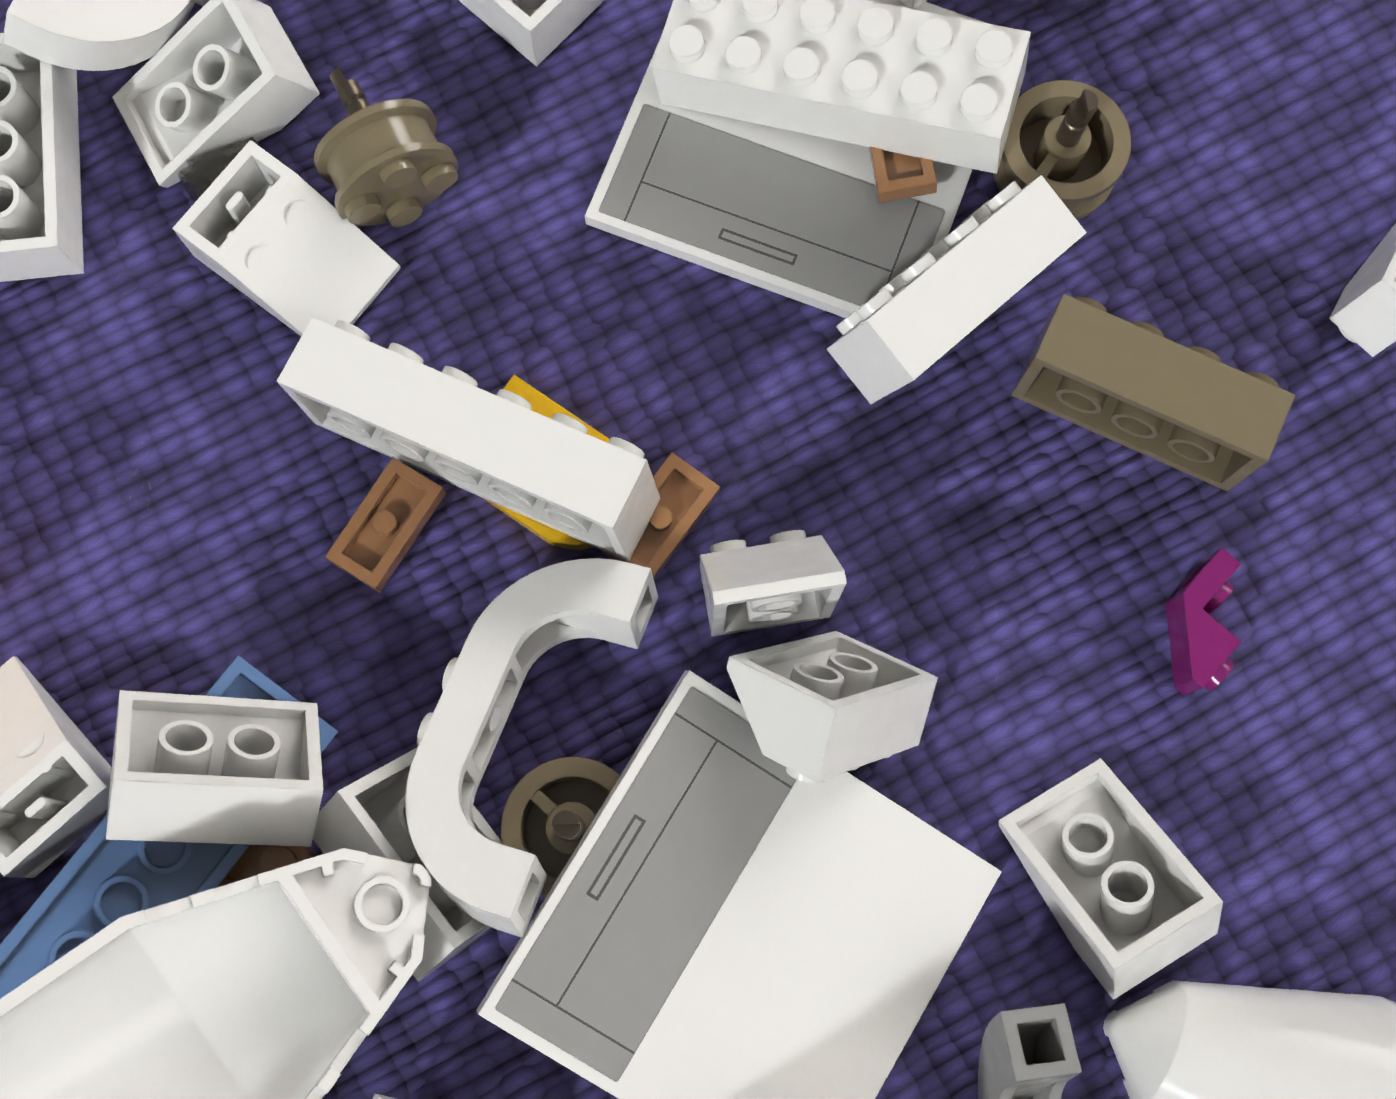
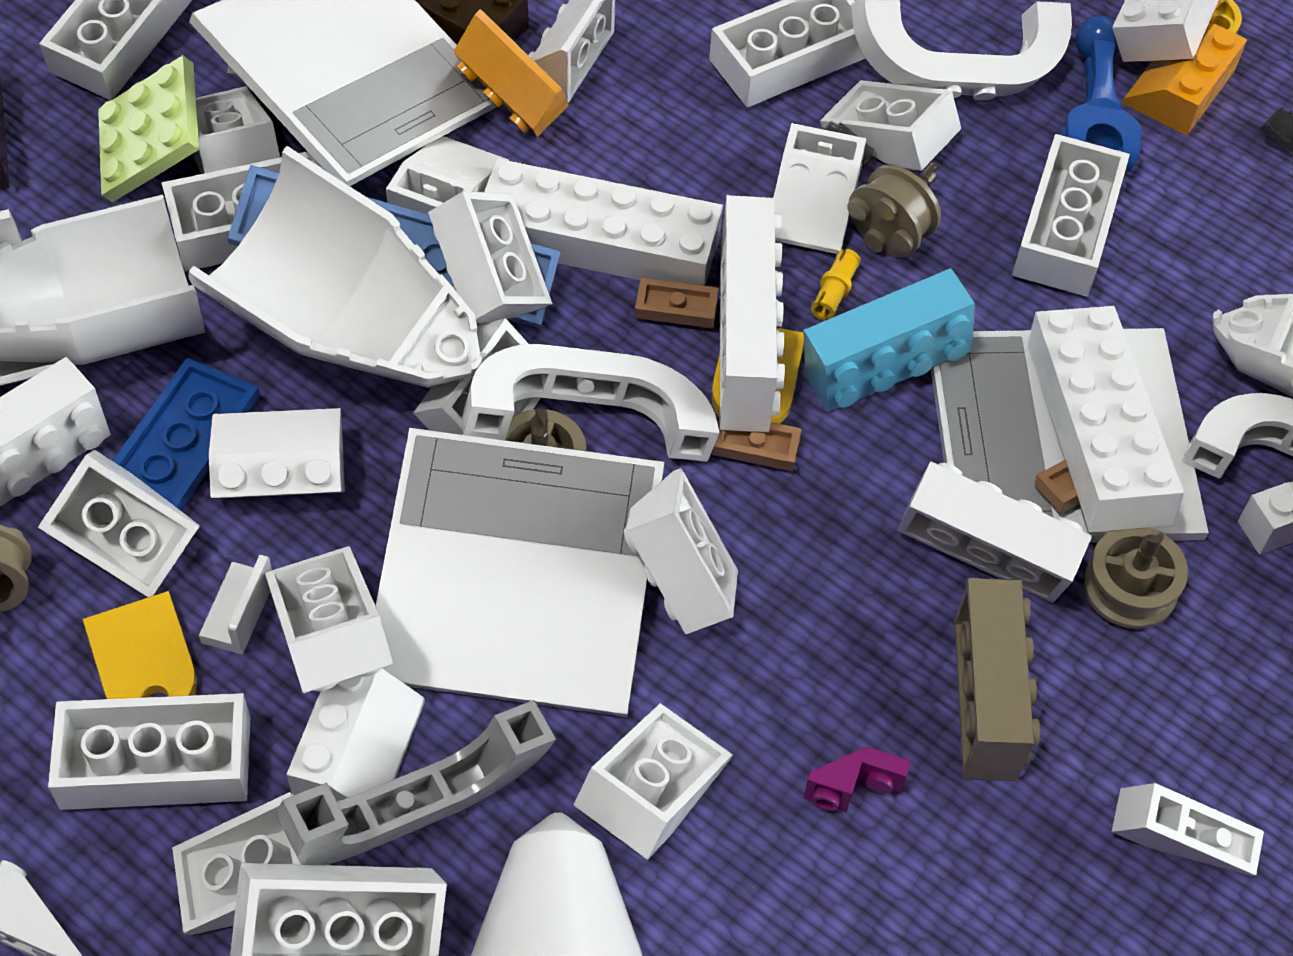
camera: 65 degrees right, 20 degrees down
(205, 569) = (612, 224): none -> white brick
(453, 297) = (835, 284): none -> yellow pin
(601, 272) = (889, 340): none -> medium azure brick
(770, 583) = (740, 502): white slope -> none

